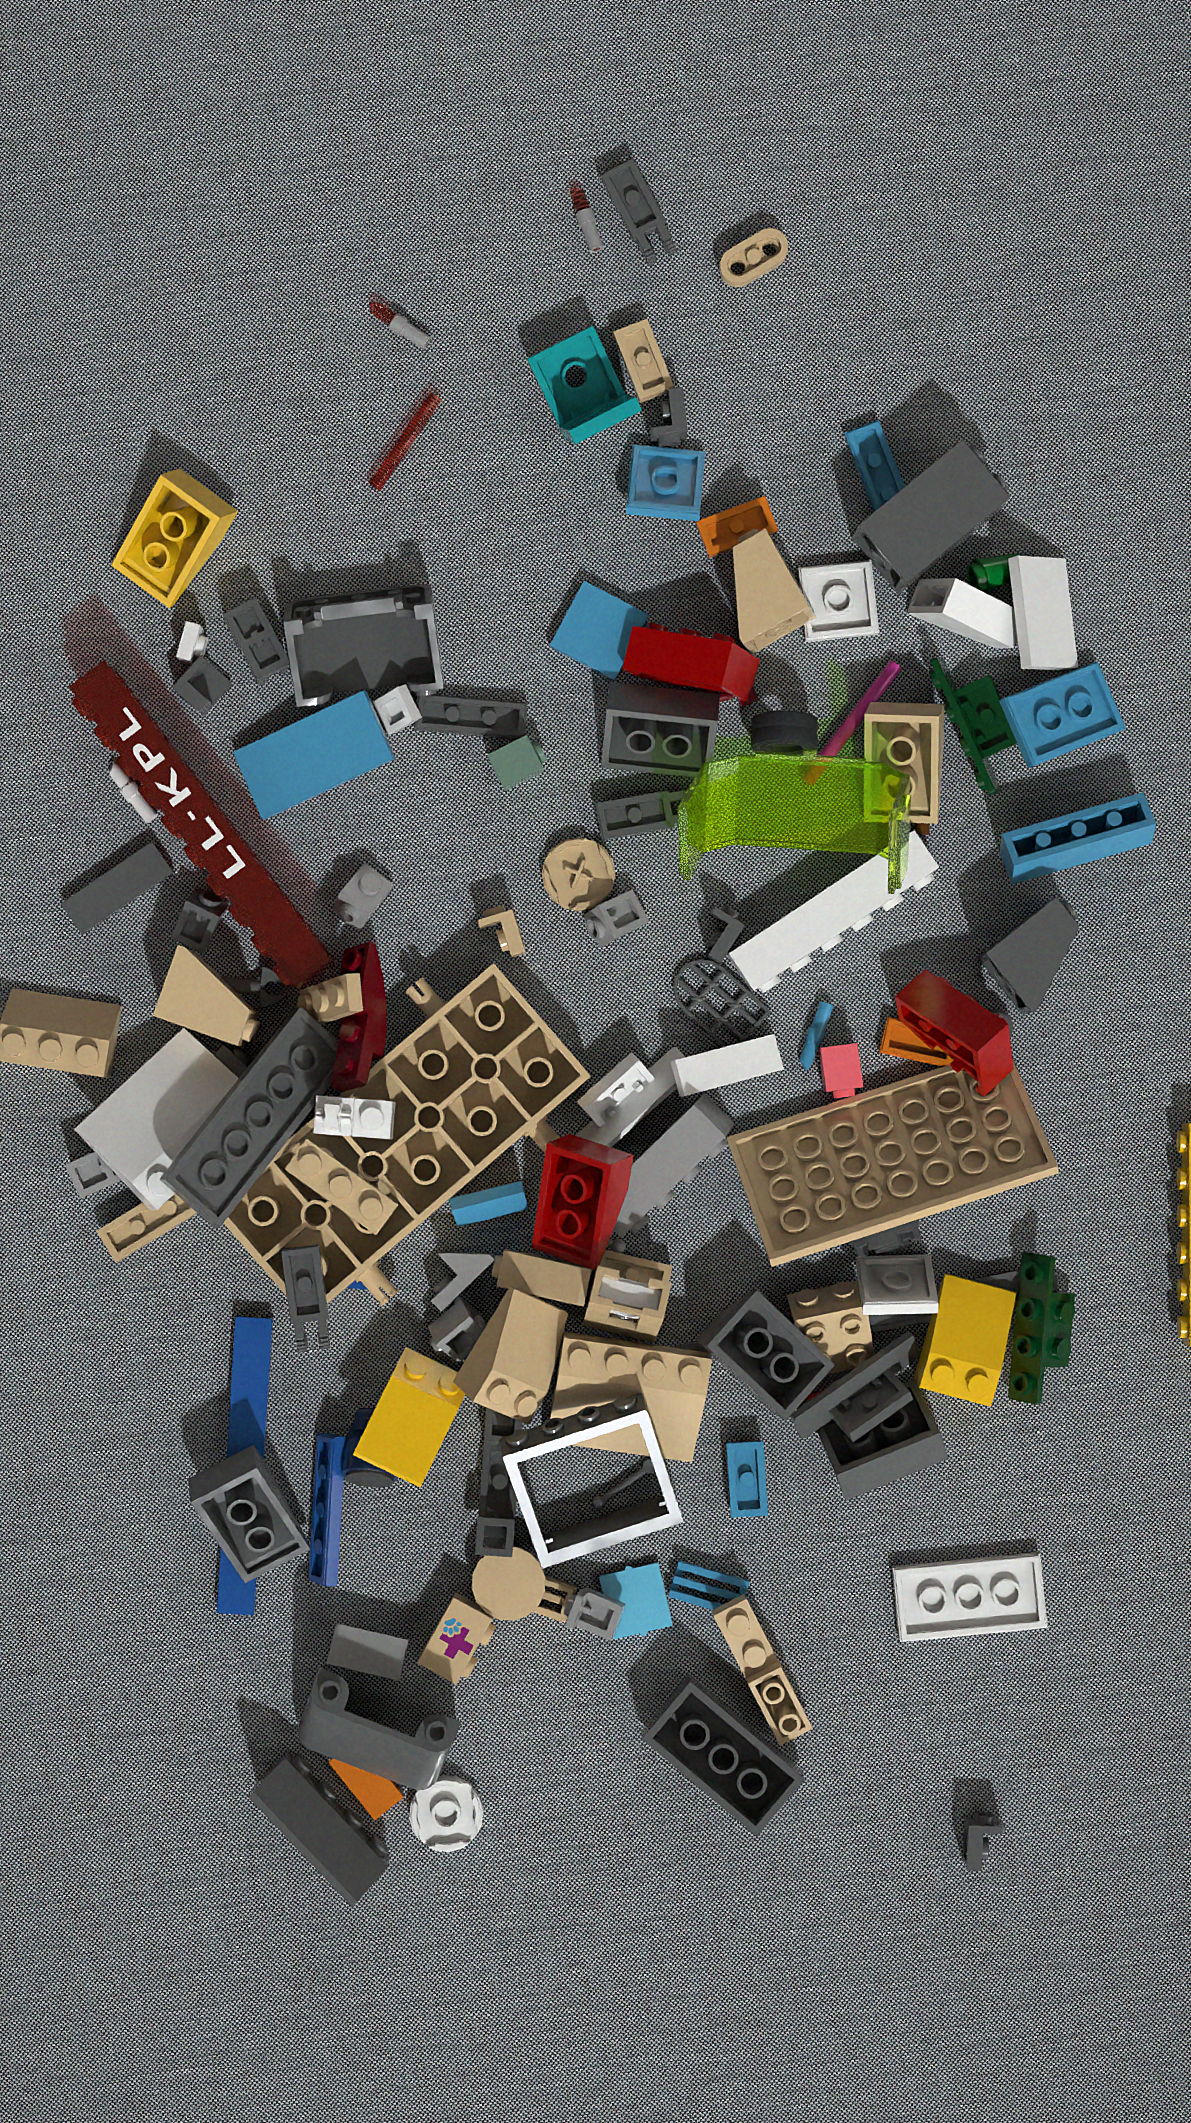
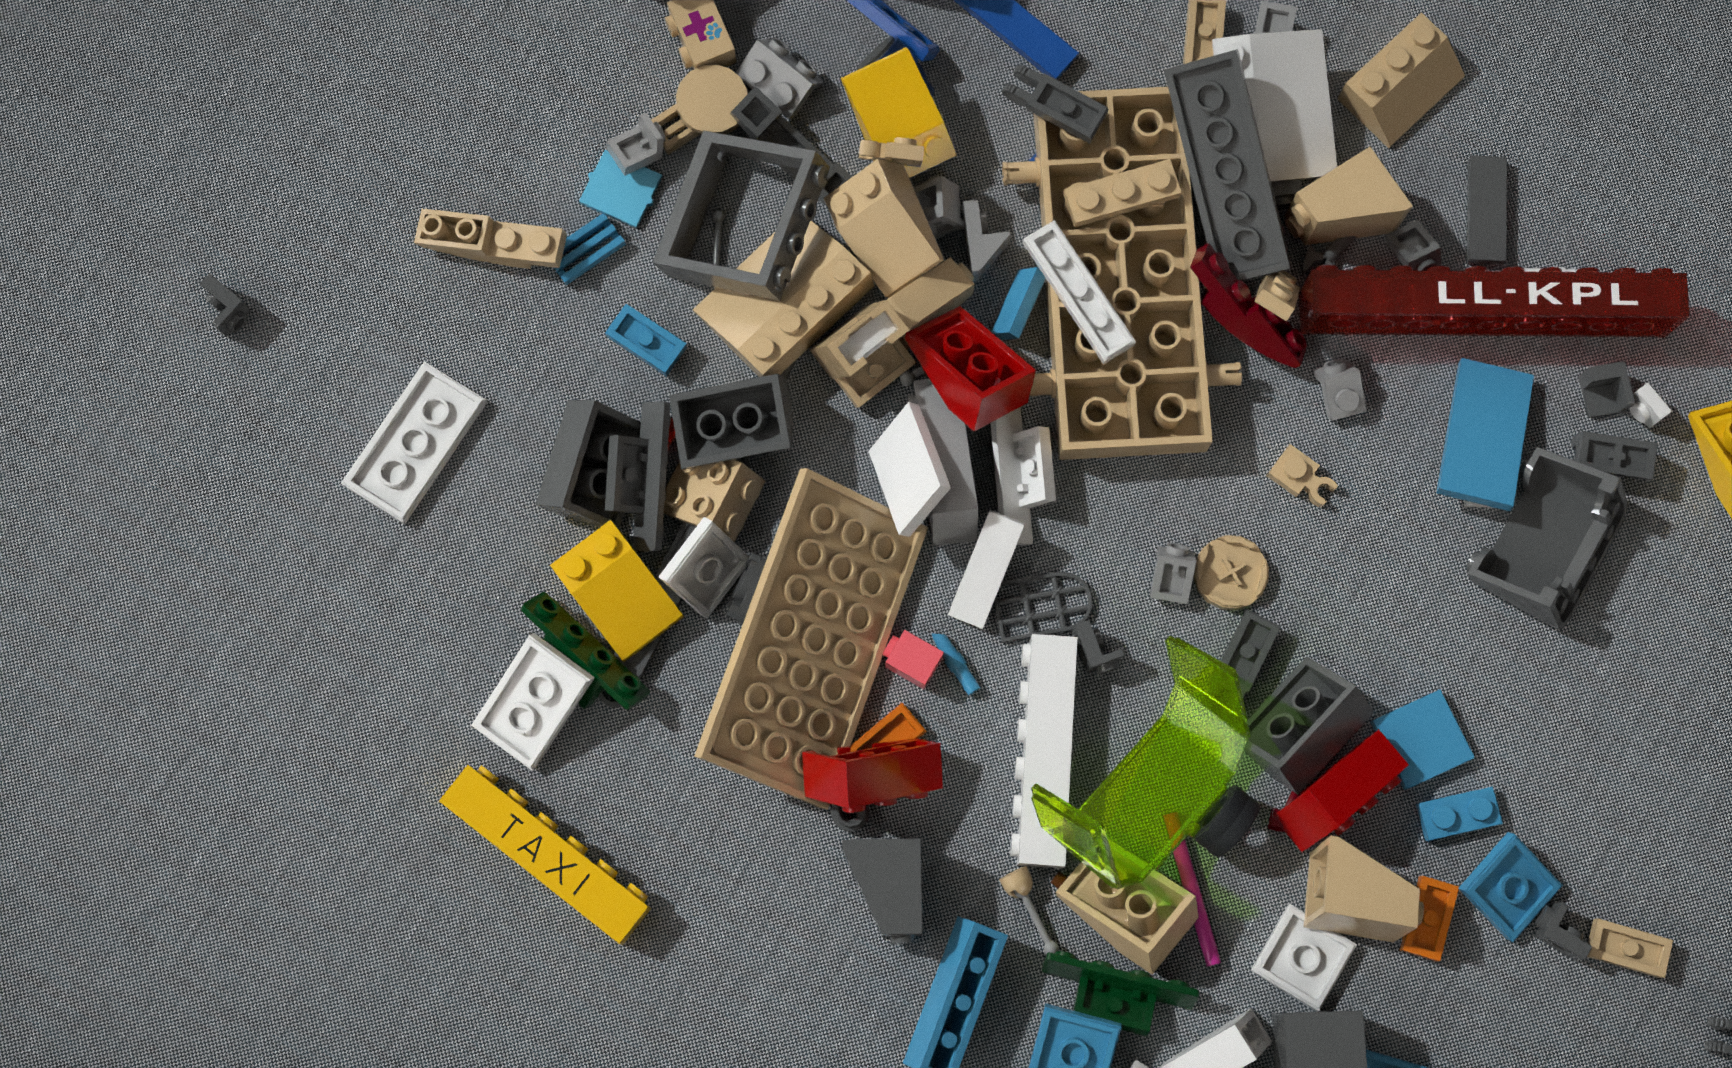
camera: 130 degrees right, 10 degrees down
(354, 1117) = (1171, 237): white hinge -> none
(397, 709) = (1475, 527): white plate -> none
(404, 441) = (1696, 701): clear red bar -> none
(443, 1545) = (779, 75): none -> light grey bracket
(447, 1388) = (902, 151): none -> tan plate
(451, 1159) = (1079, 292): none -> white tile
(457, 882) = (1296, 473): none -> tan plate
(471, 716) = (1424, 584): dark grey tile -> none
(510, 935) = (1223, 480): tan bracket -> none
(517, 762) = (1361, 589): sand green brick -> none
(593, 404) = (1622, 874): teal bracket -> none
(635, 561) = (1459, 814): none -> dark azure plate
(699, 1184) = (909, 469): none -> white tile
(722, 1755) = (450, 158): dark grey brick -> none
(950, 856) = (1018, 885): none -> hinge
(1102, 1336) = (532, 701): none -> white tile

